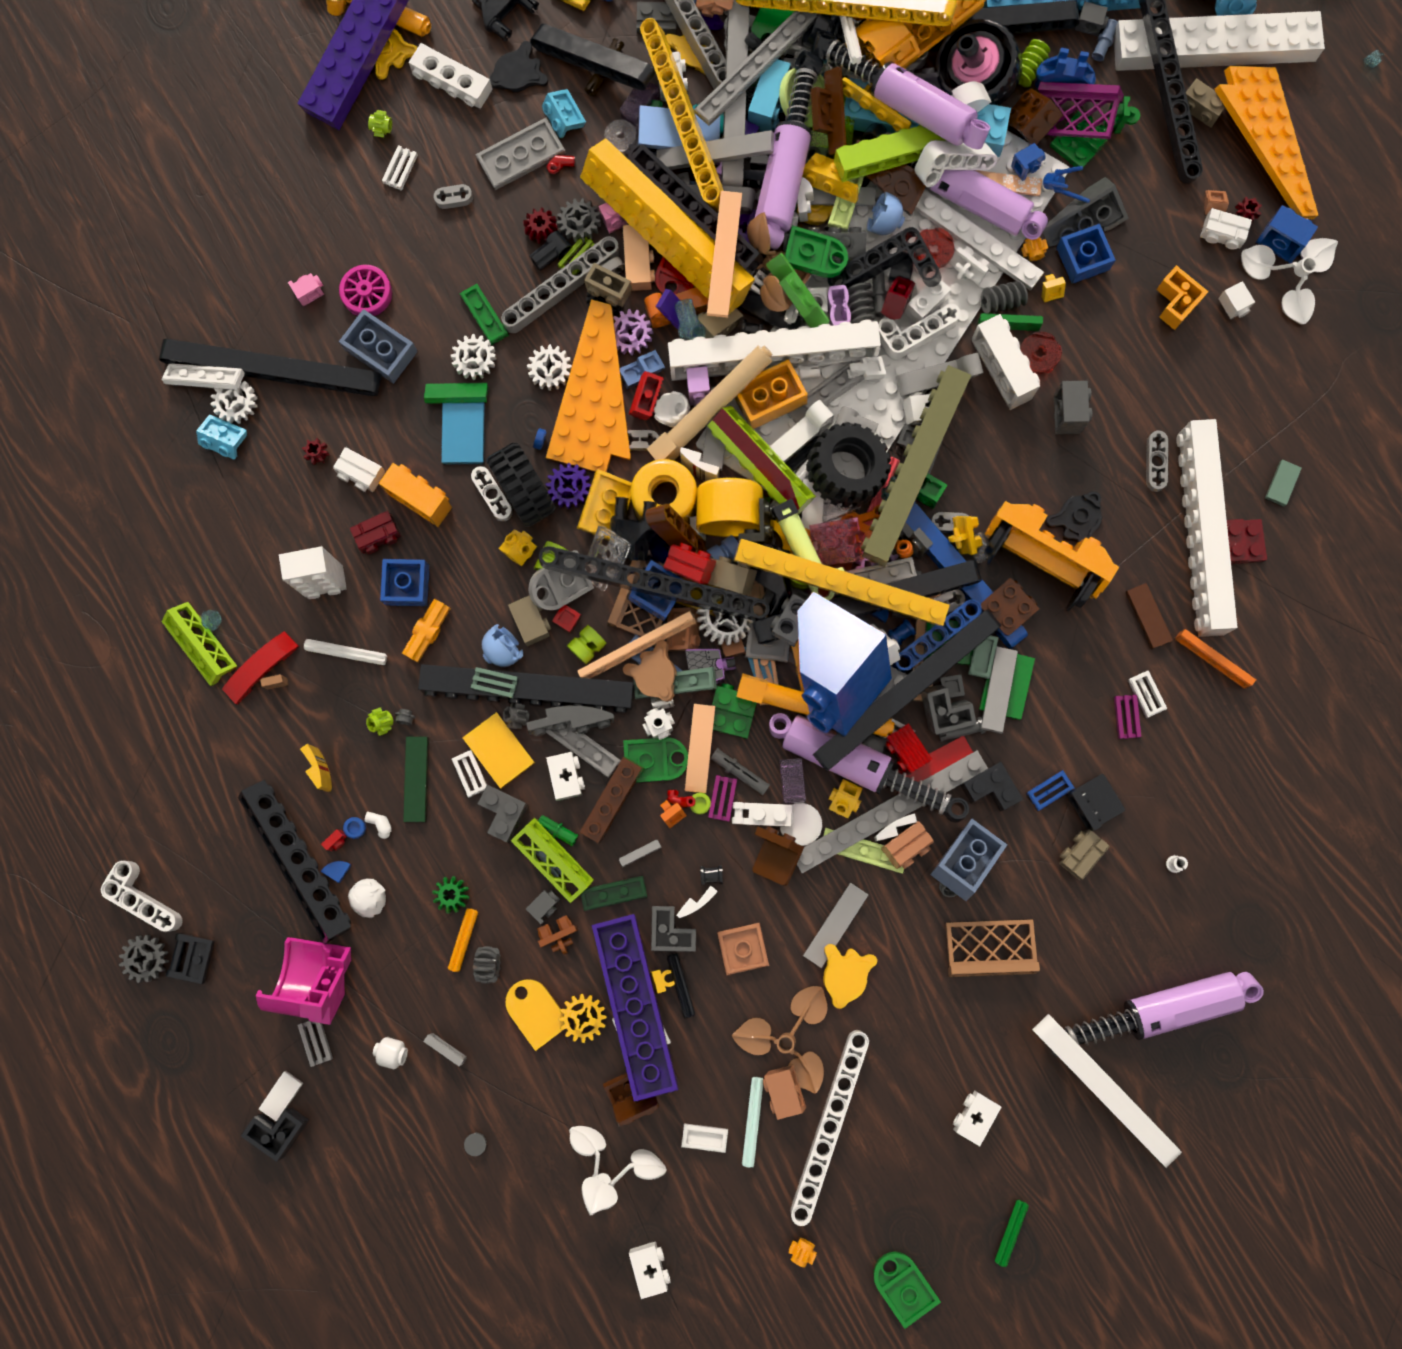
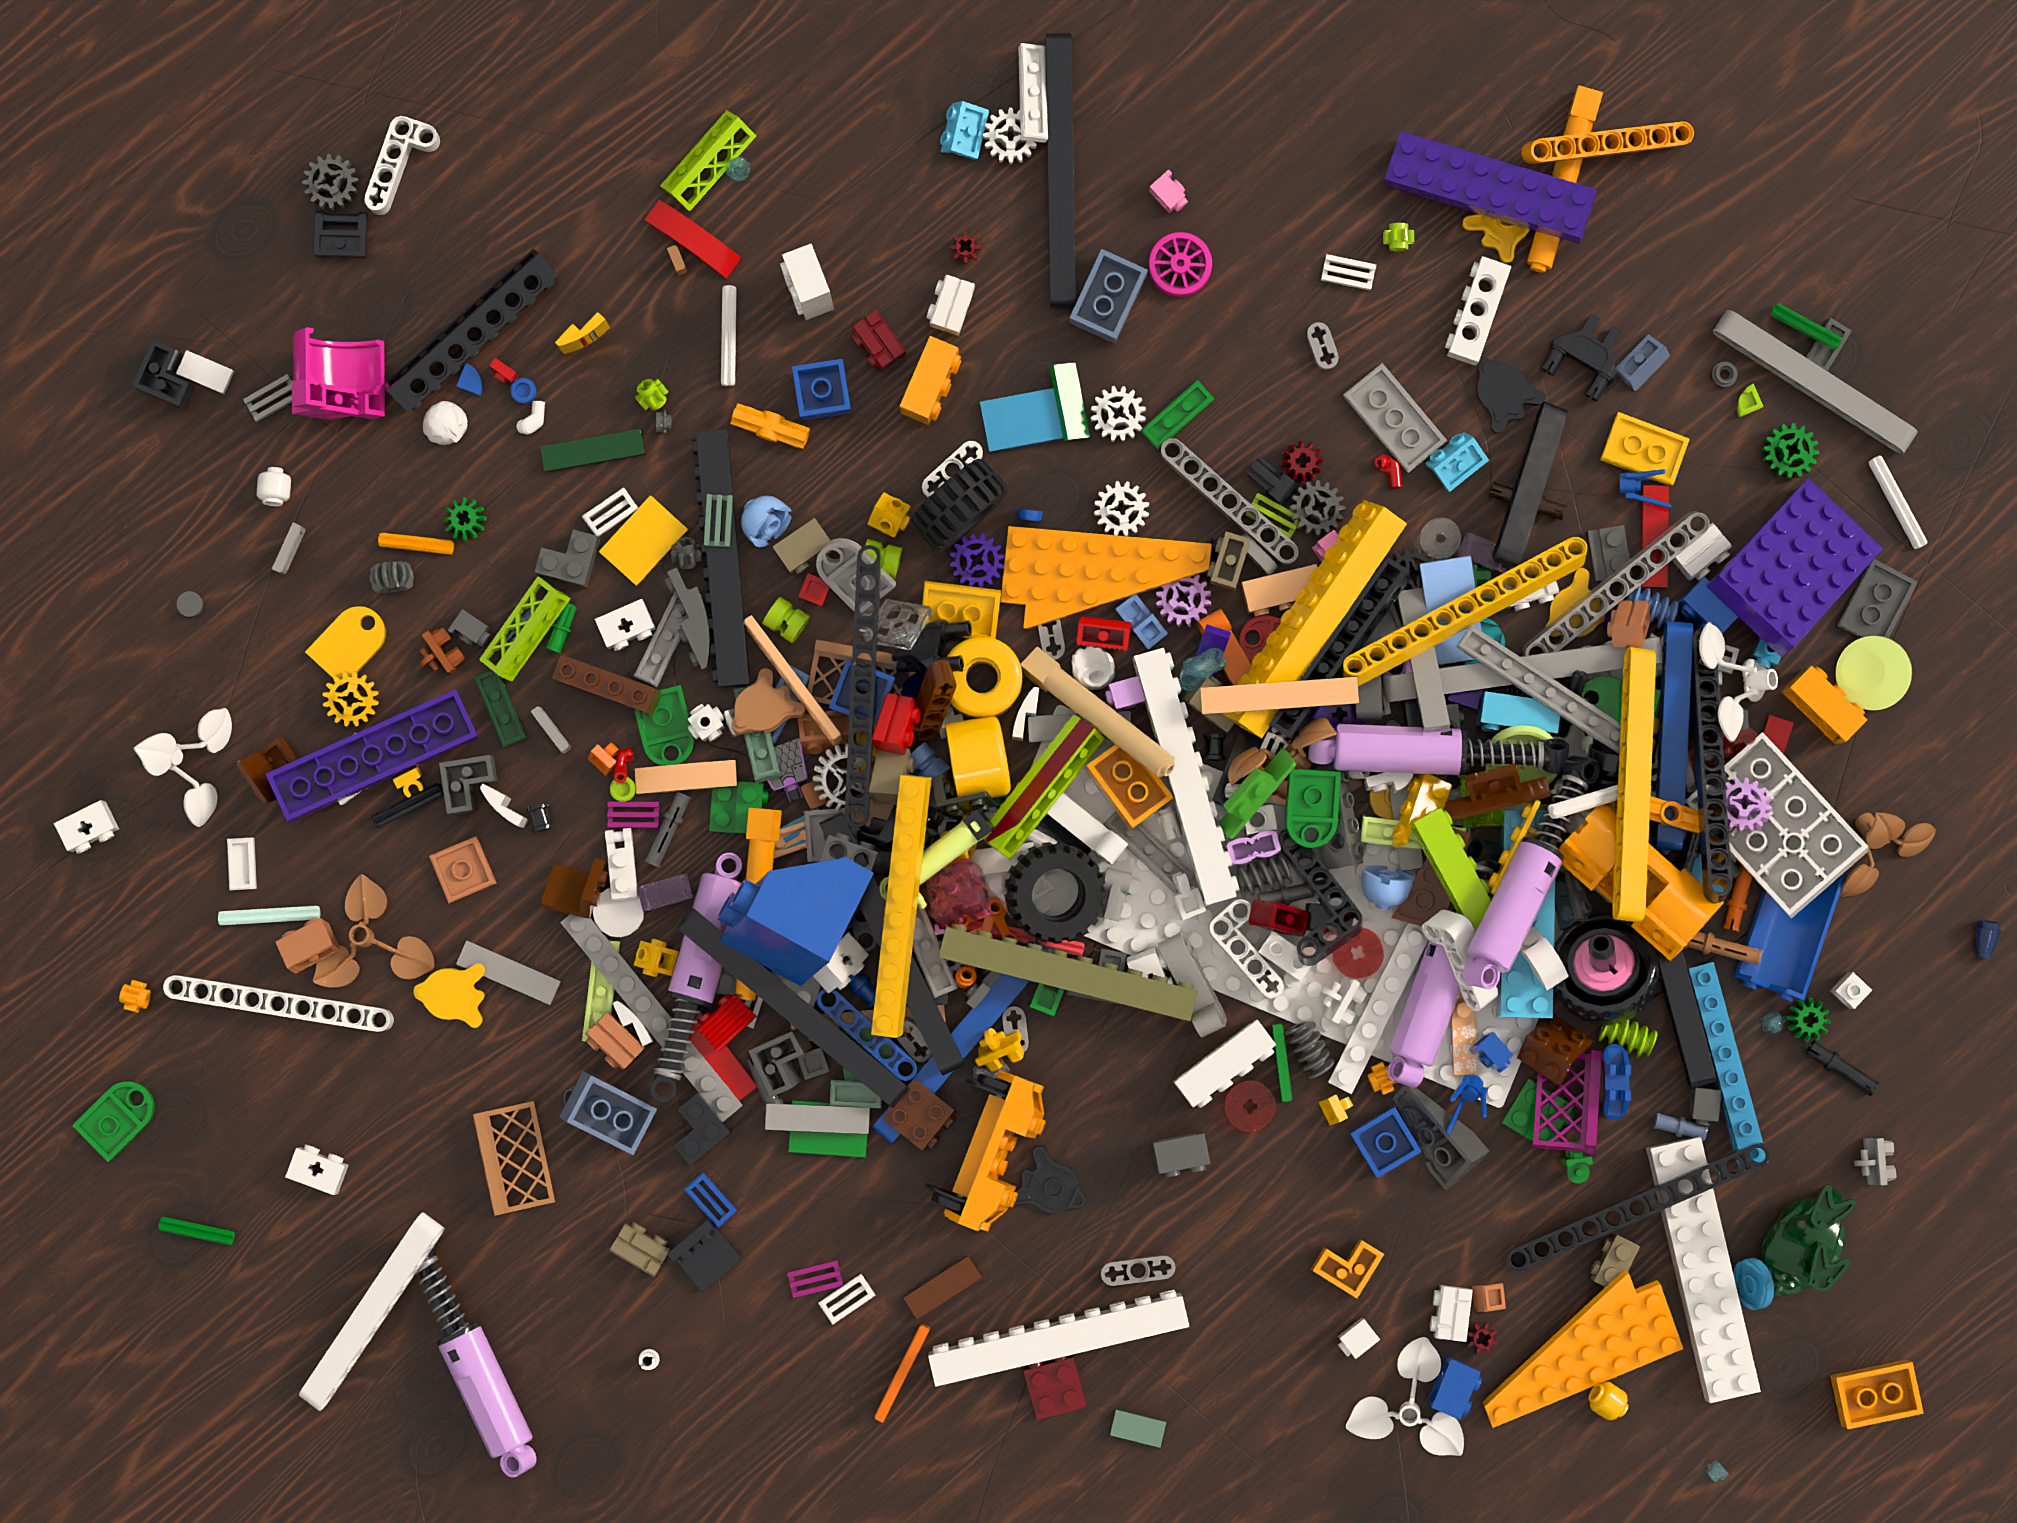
camera: 75 degrees right, 5 degrees up
(1309, 126) = (1608, 1401): none -> yellow head

